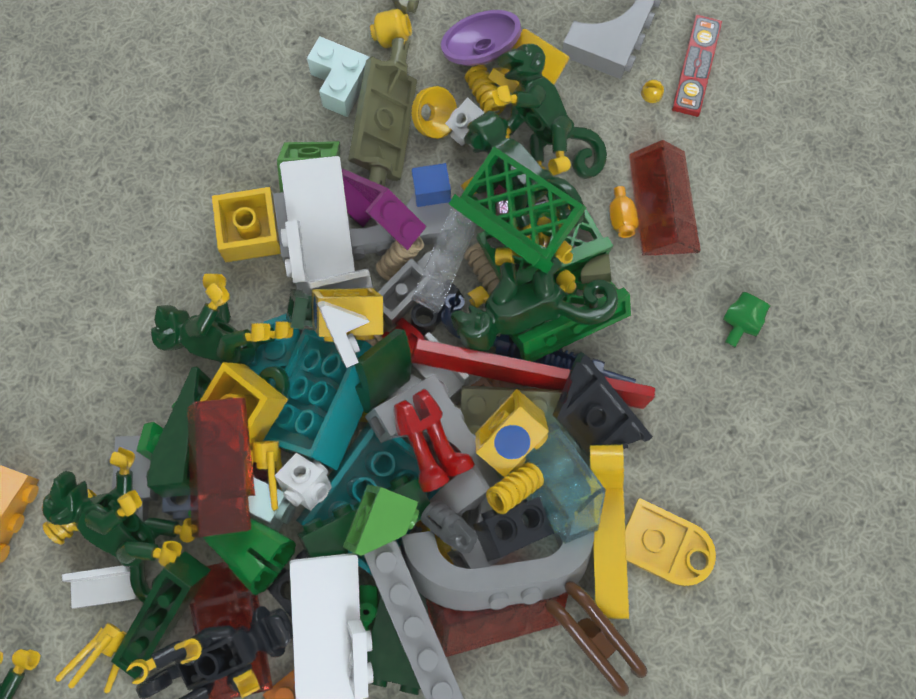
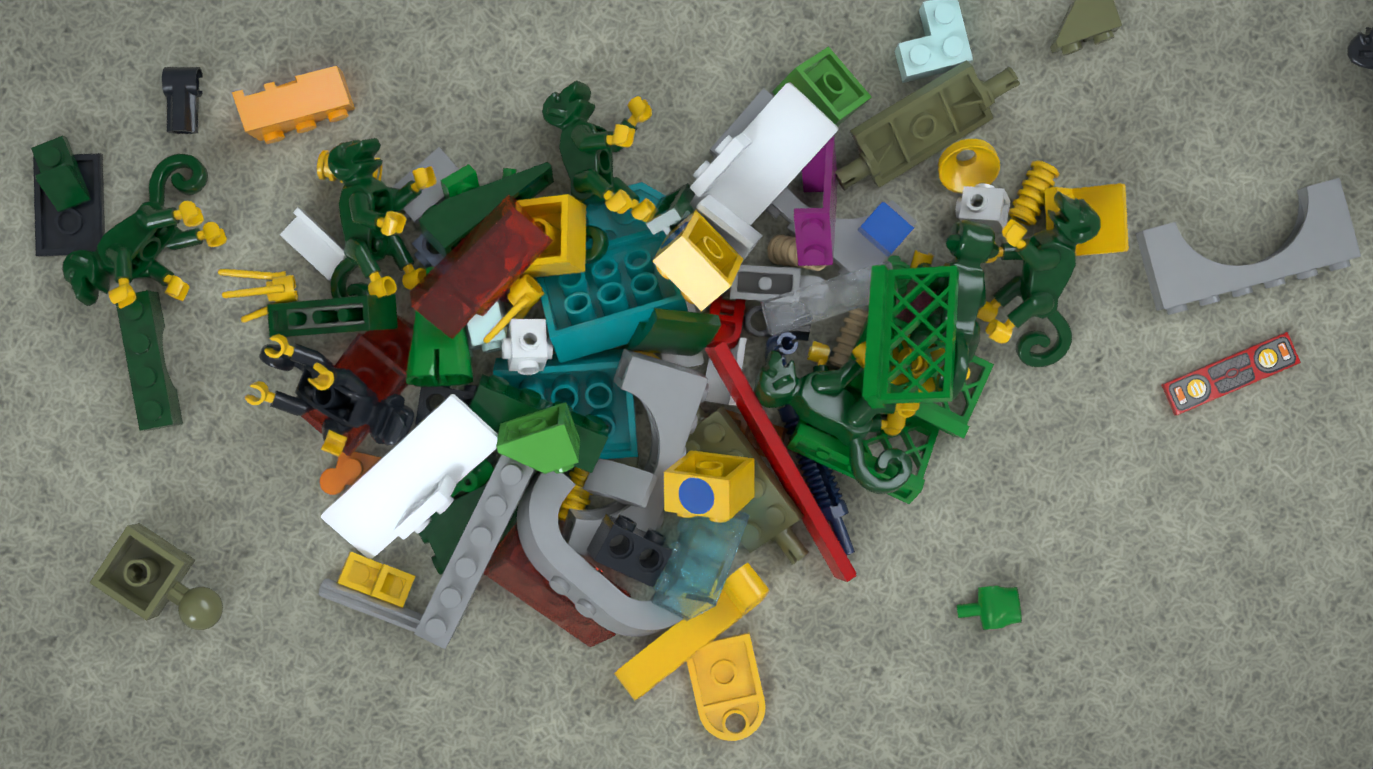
camera: 55 degrees right, 15 degrees up
(246, 224) = (716, 88): yellow brick -> none
(339, 322) = (675, 275): white slope -> none
(390, 25) = (1027, 49): yellow head -> none
(408, 423) = (642, 457): red piece -> none
(449, 526) = (587, 497): dark grey hinge -> none
(481, 37) = (1092, 136): medium lavender dish -> none
(515, 488) = (662, 527): yellow piece -> none
(595, 411) = (788, 543): black wing -> none
(597, 269) = (930, 440): olive tile -> none
(597, 638) = (597, 686): reddish brown piece -> none
(623, 213) = (1009, 421): light orange plant -> none
(654, 91) = (1161, 355): yellow hinge -> none
(663, 200) = (1054, 448): clear red slope -> none

